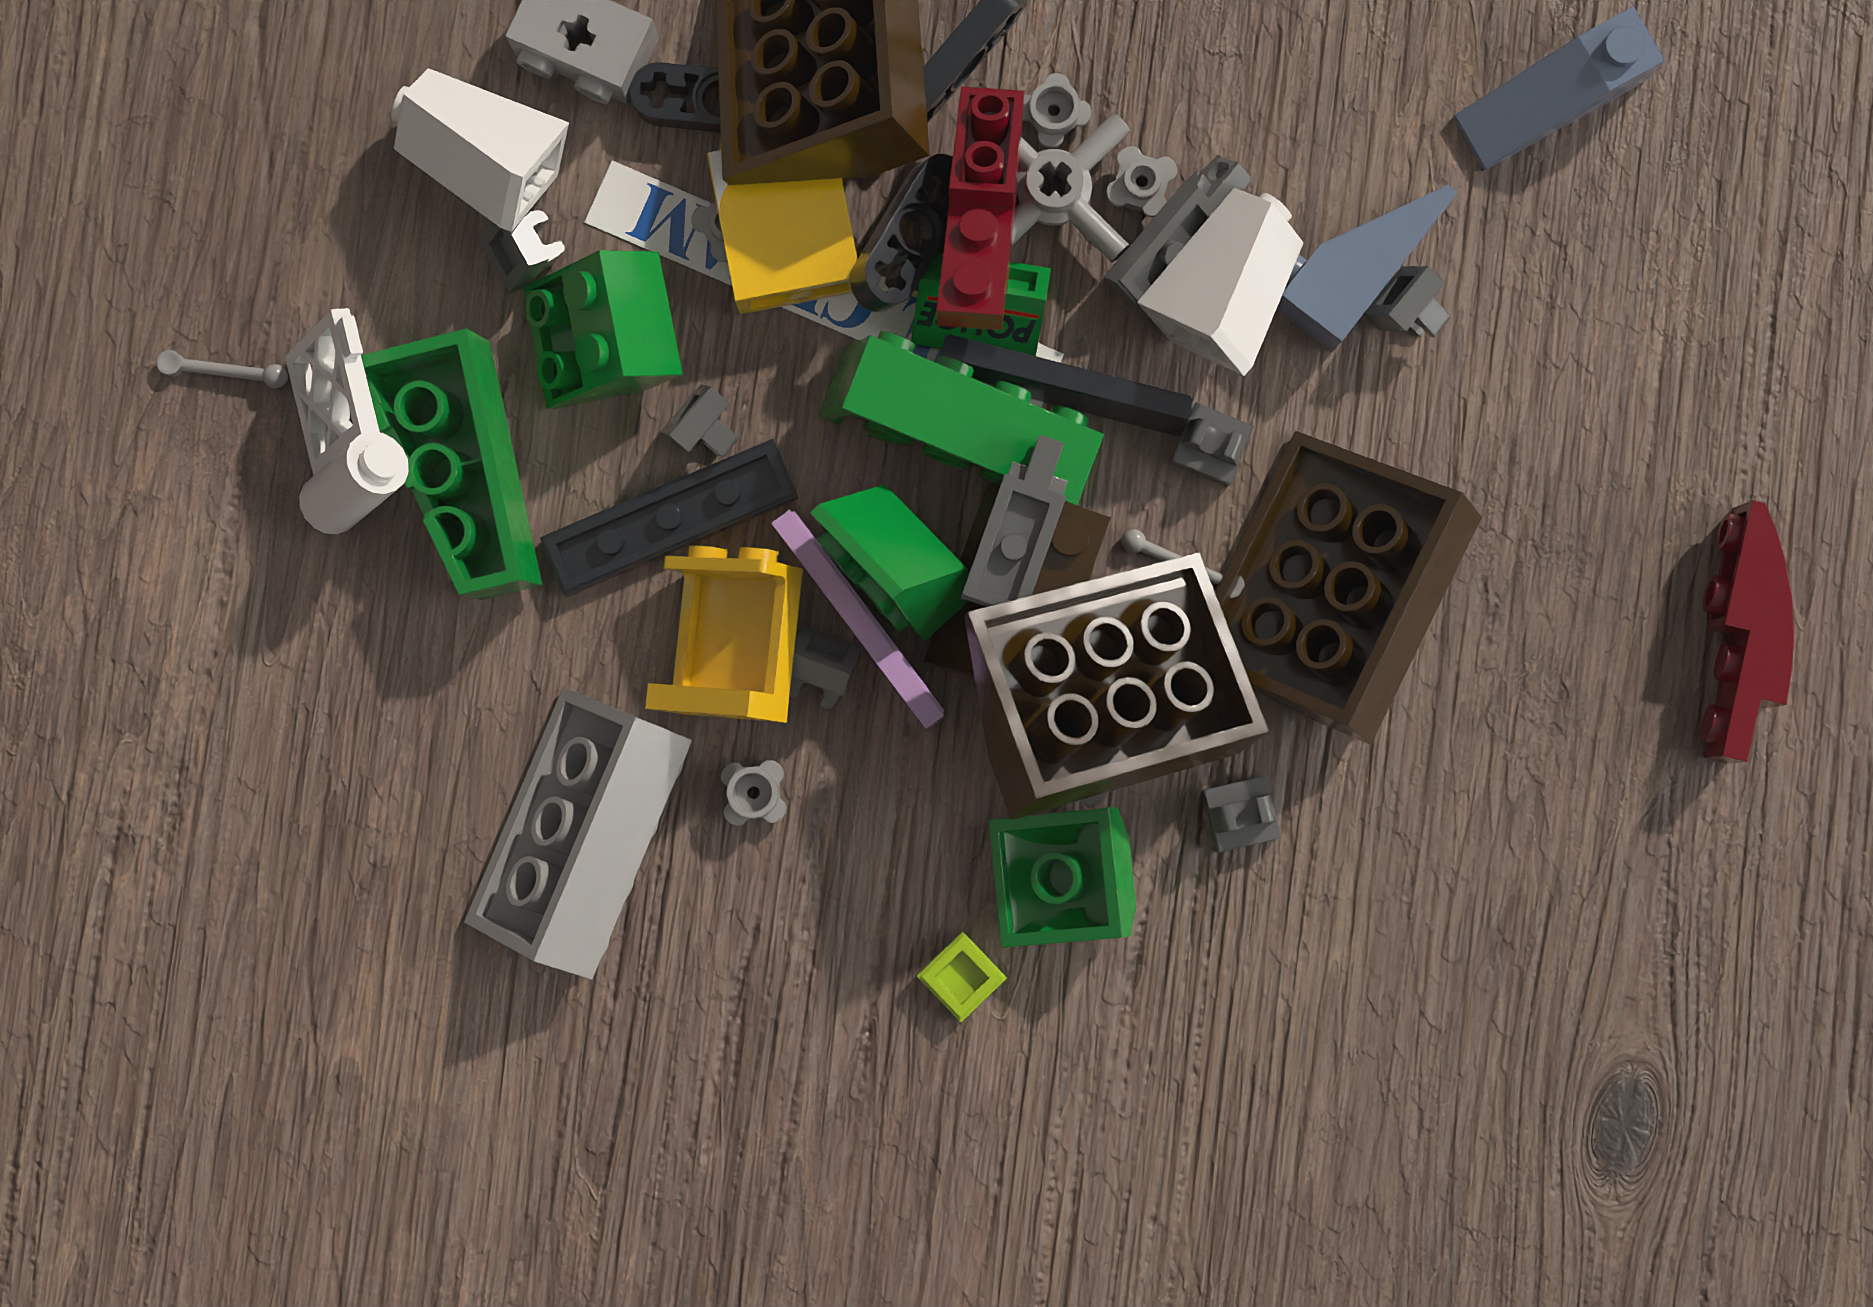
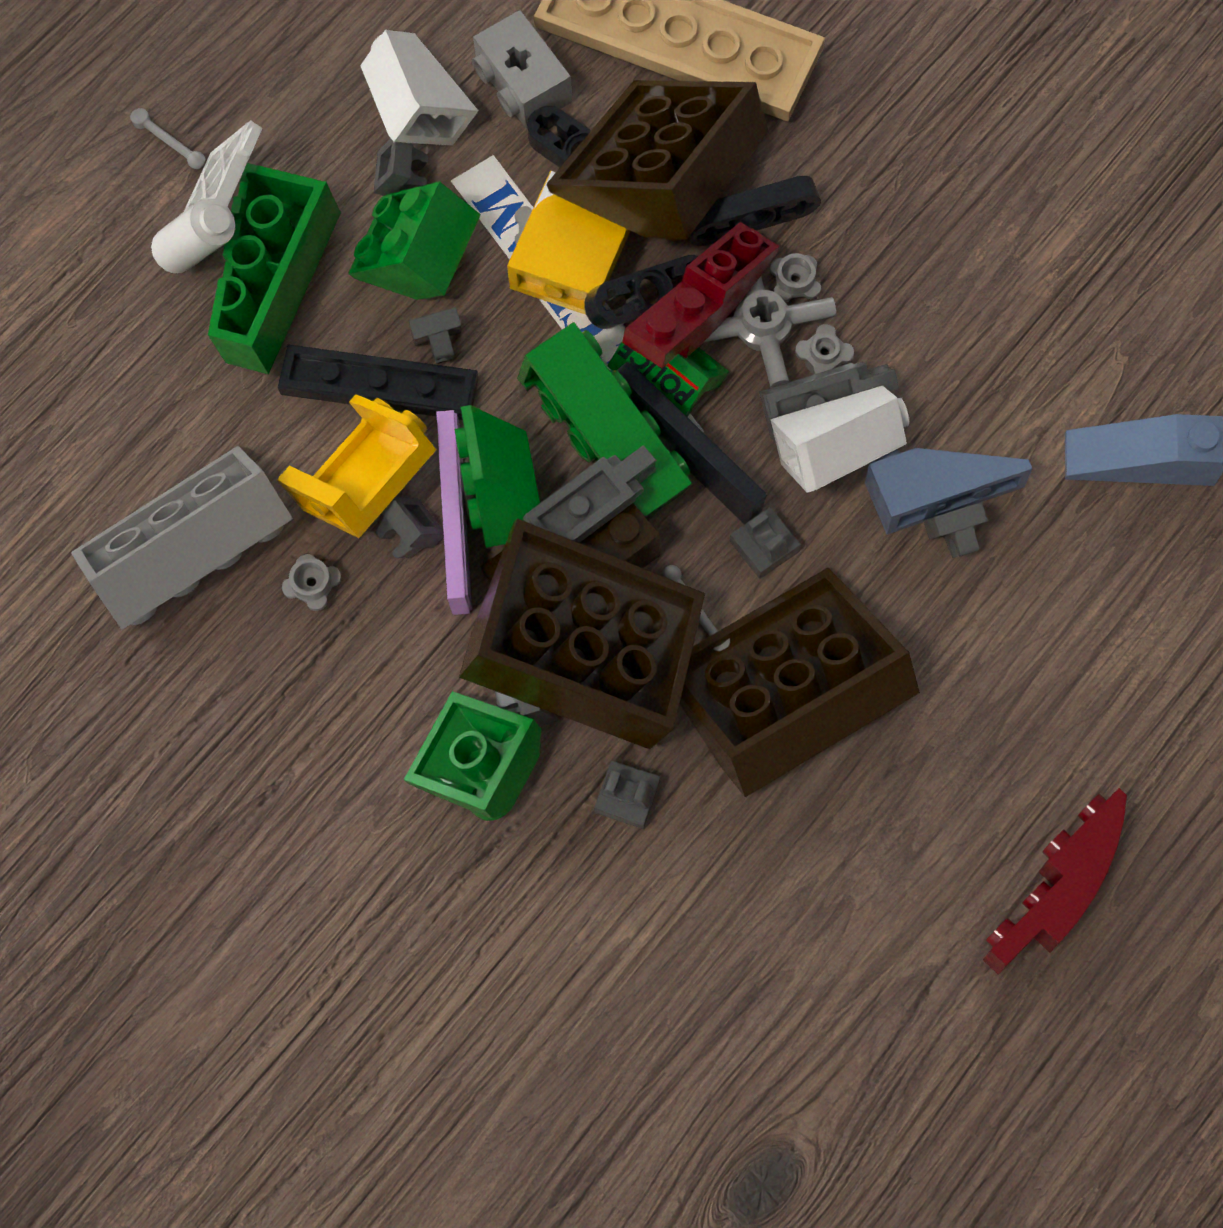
camera: 40 degrees right, 15 degrees down
(961, 976) = (365, 786): lime tile -> none

